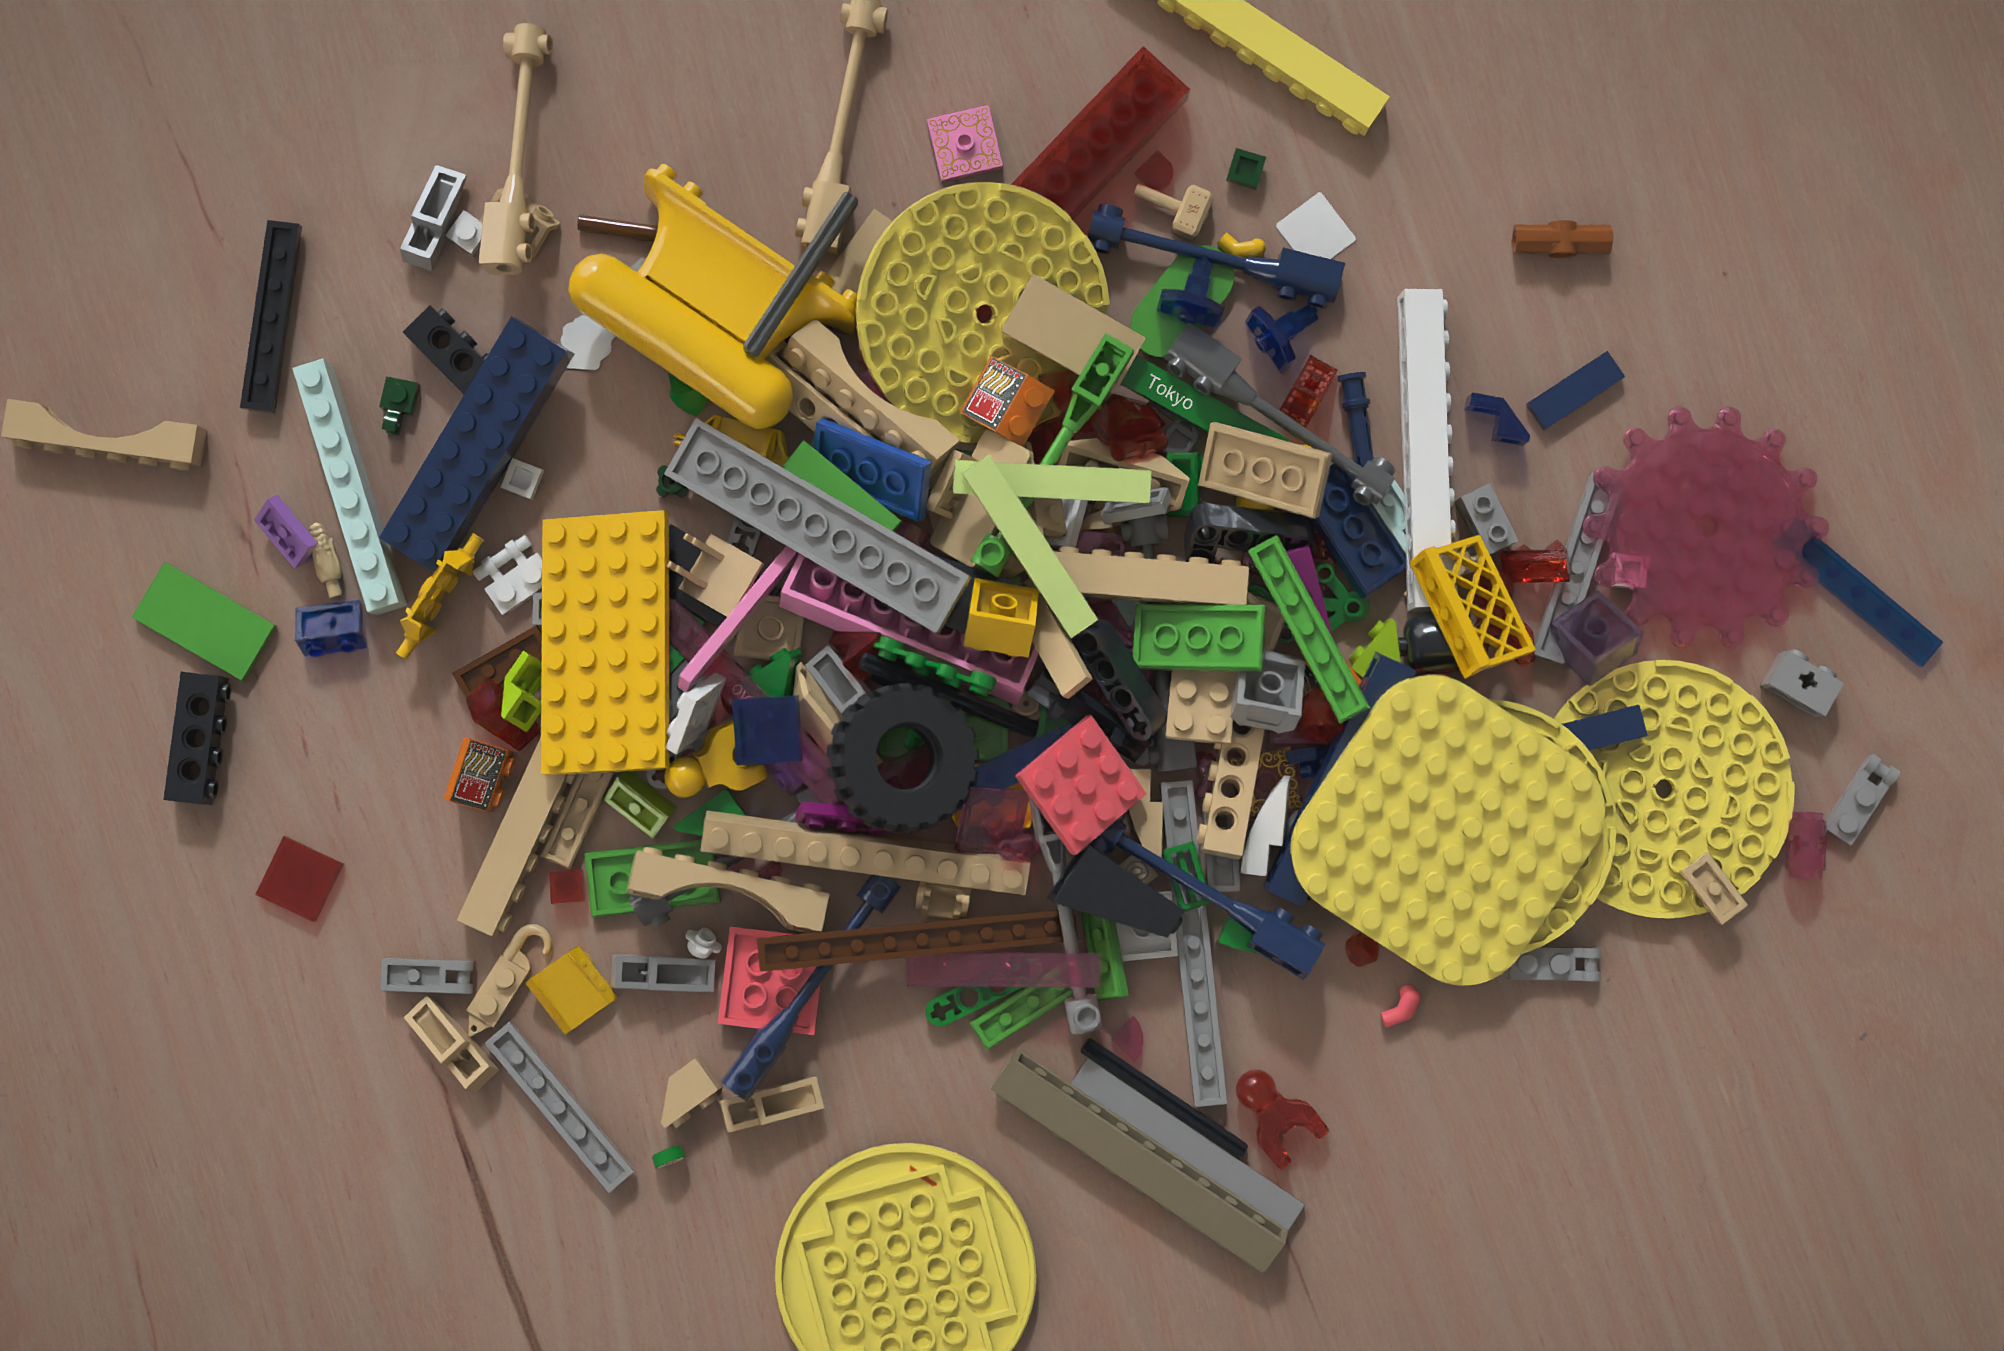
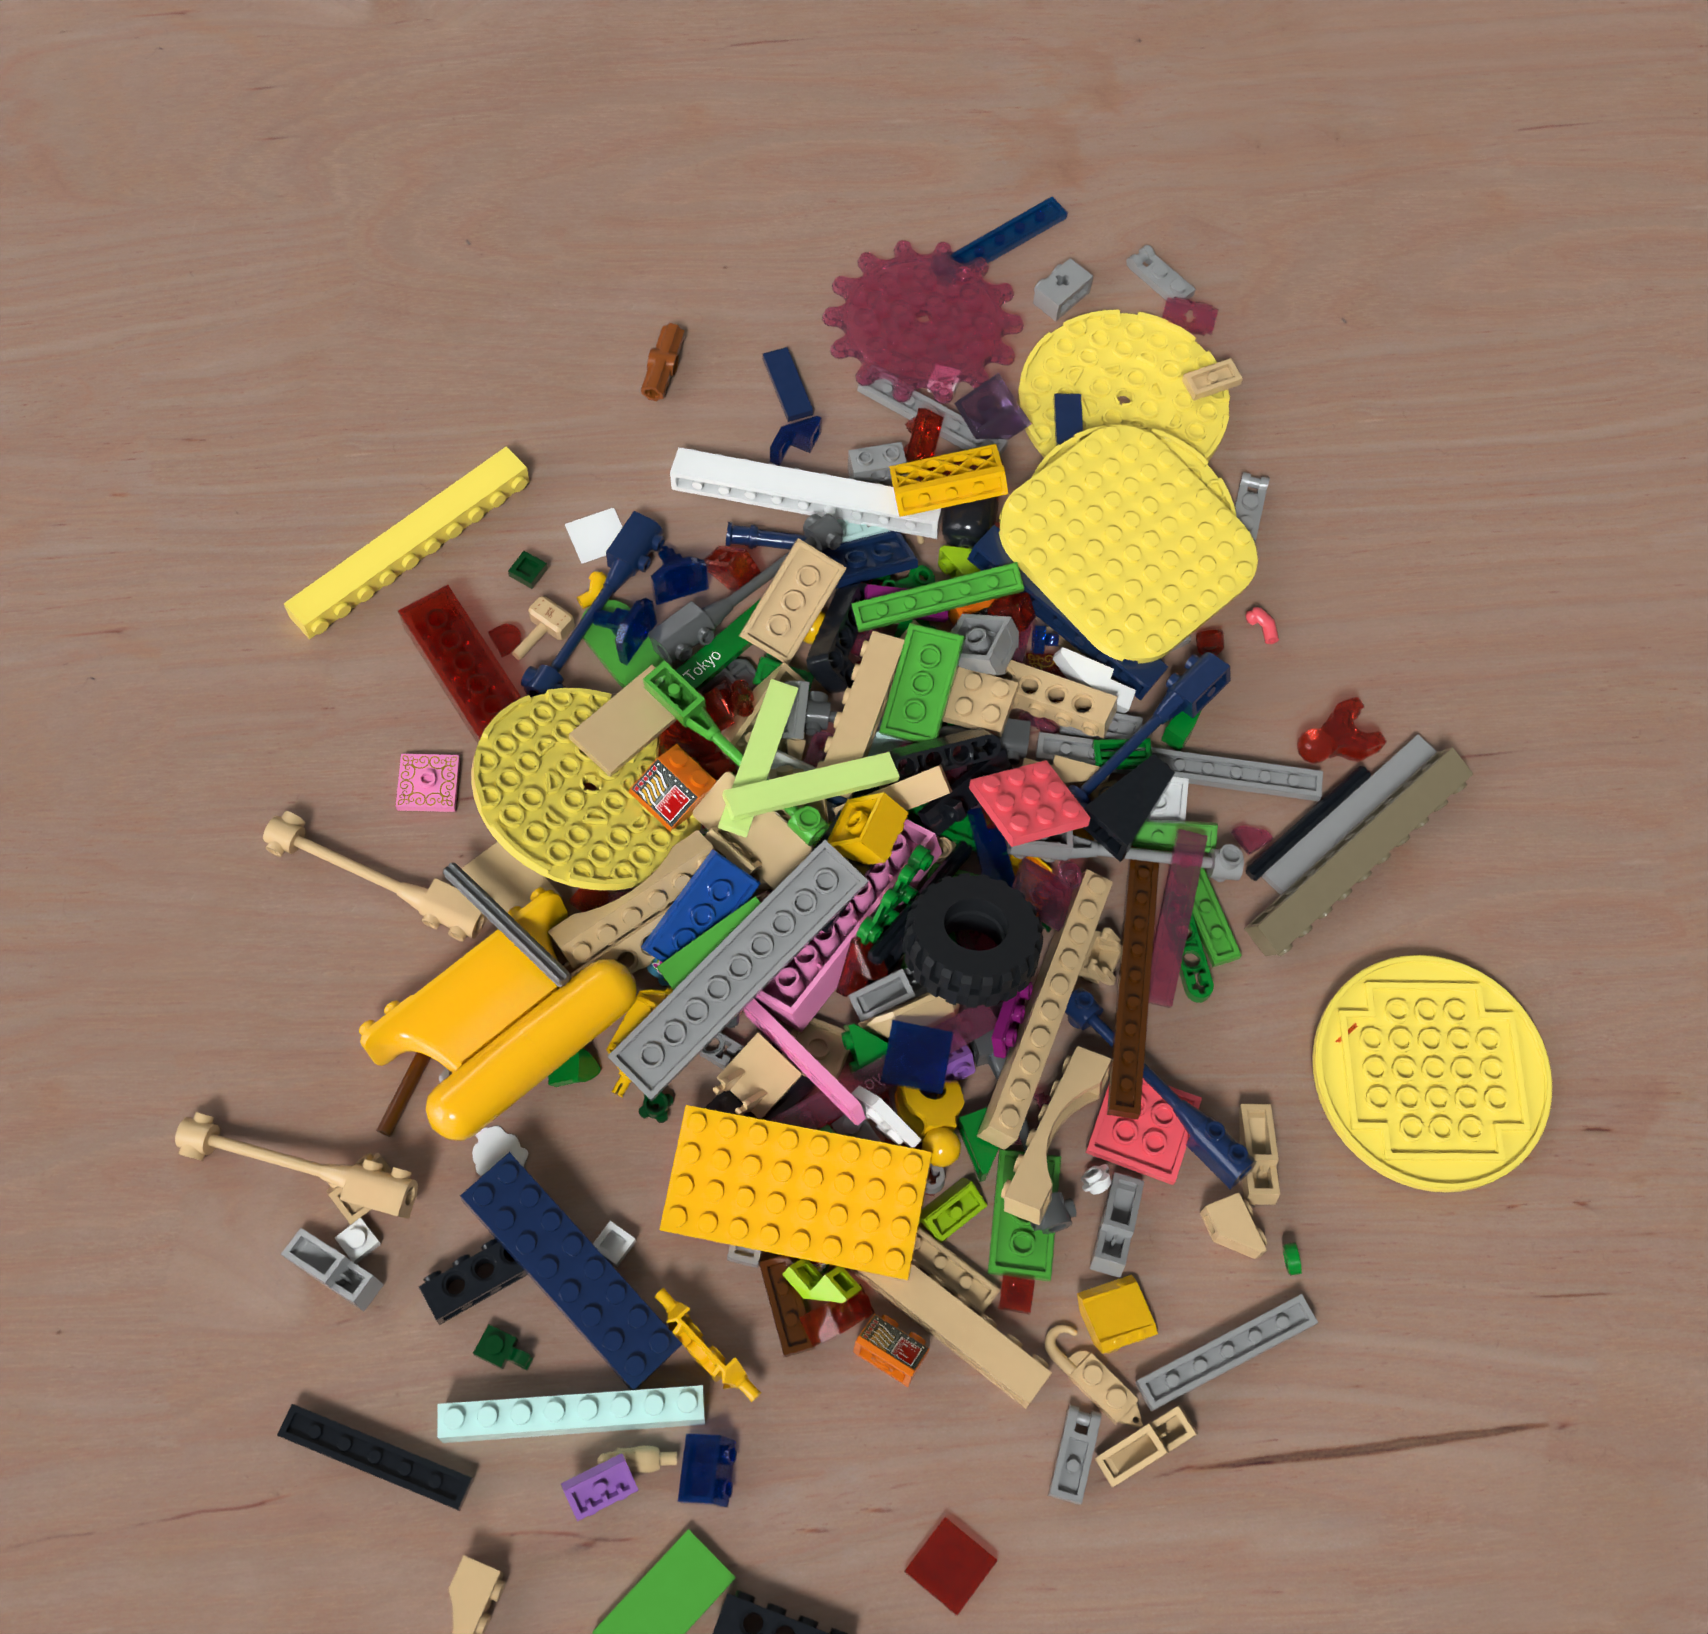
camera: 85 degrees left, 20 degrees down
(516, 585) = (713, 1273): white plate -> none

